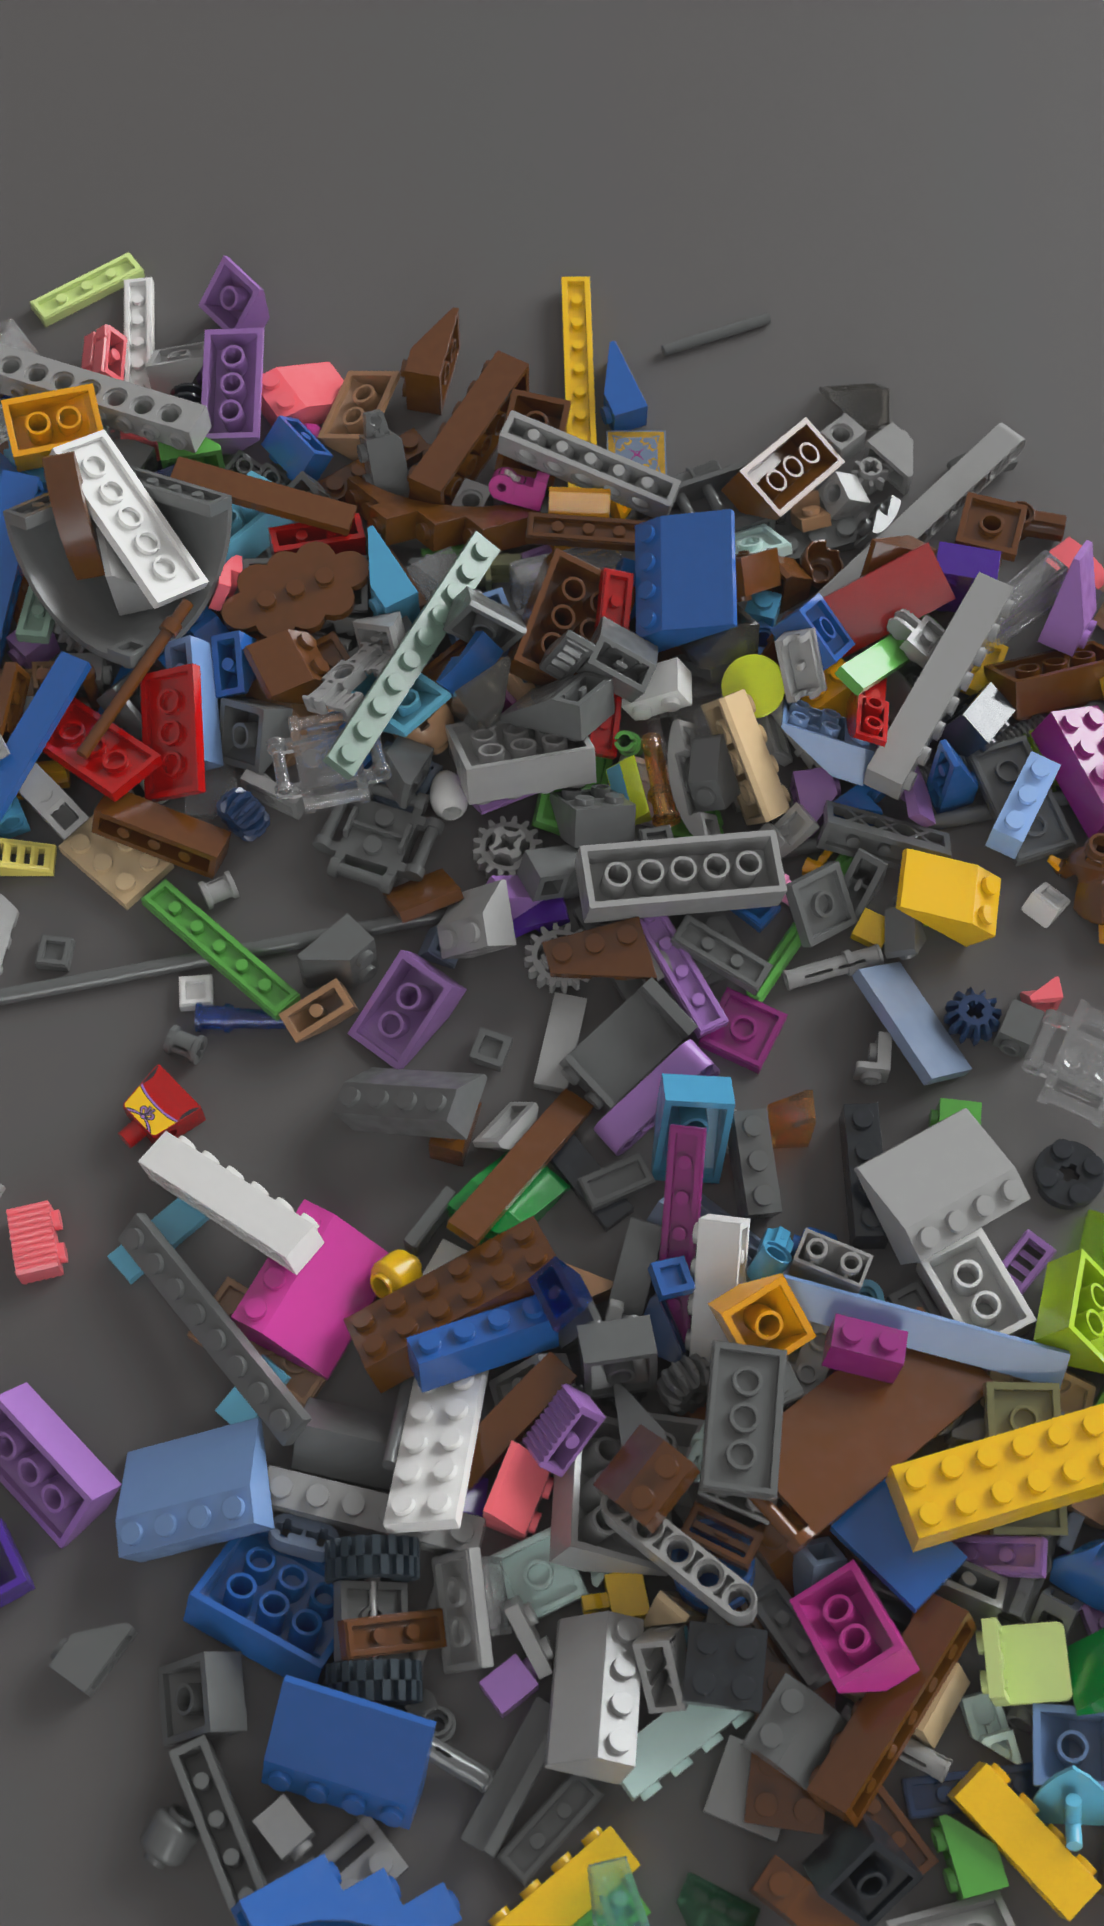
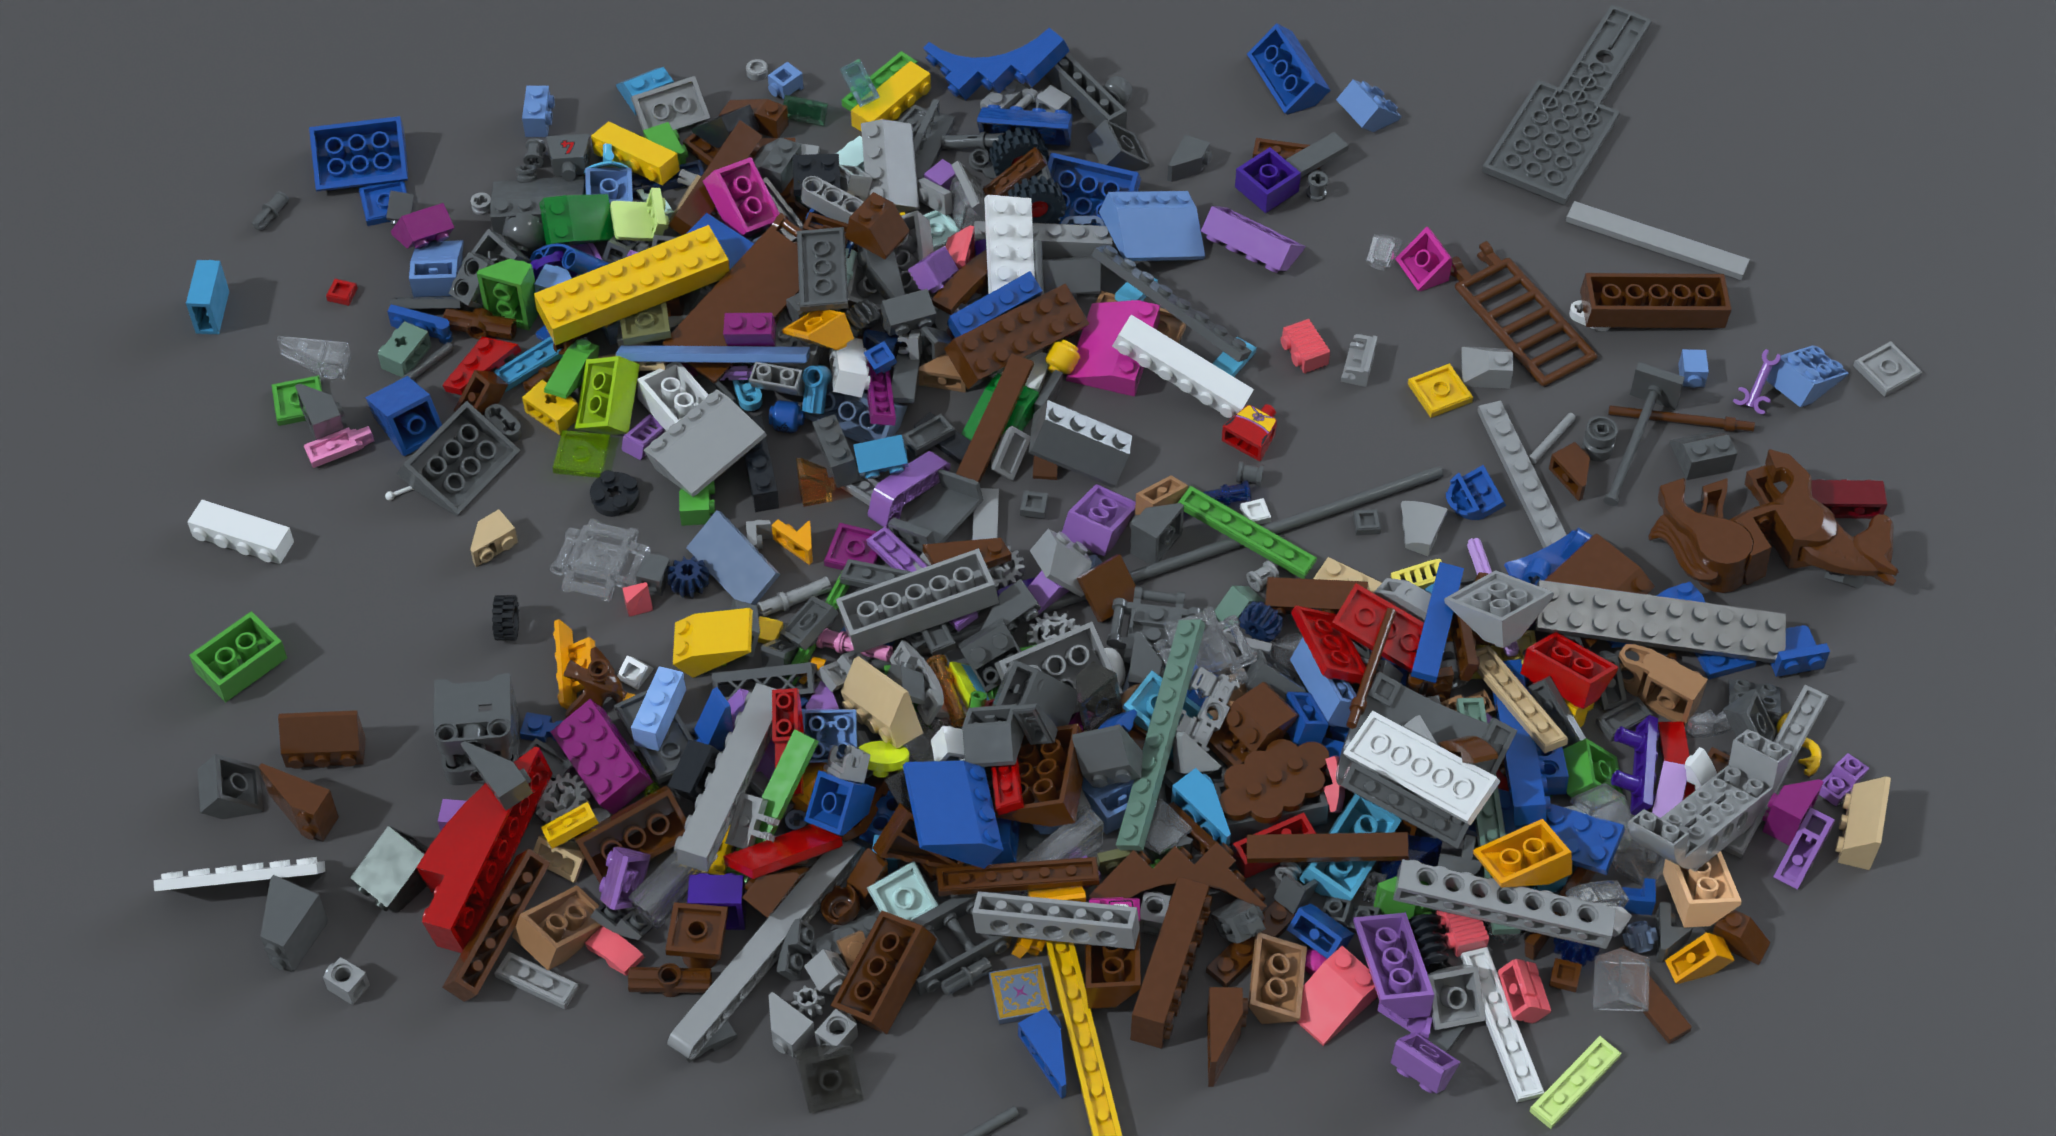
camera: 170 degrees right, 10 degrees down
(259, 858) = (1236, 601): none -> sand green slope
(560, 1292) = (946, 317): clear blue slope -> none
(820, 1041) = (796, 542): none -> light orange slope

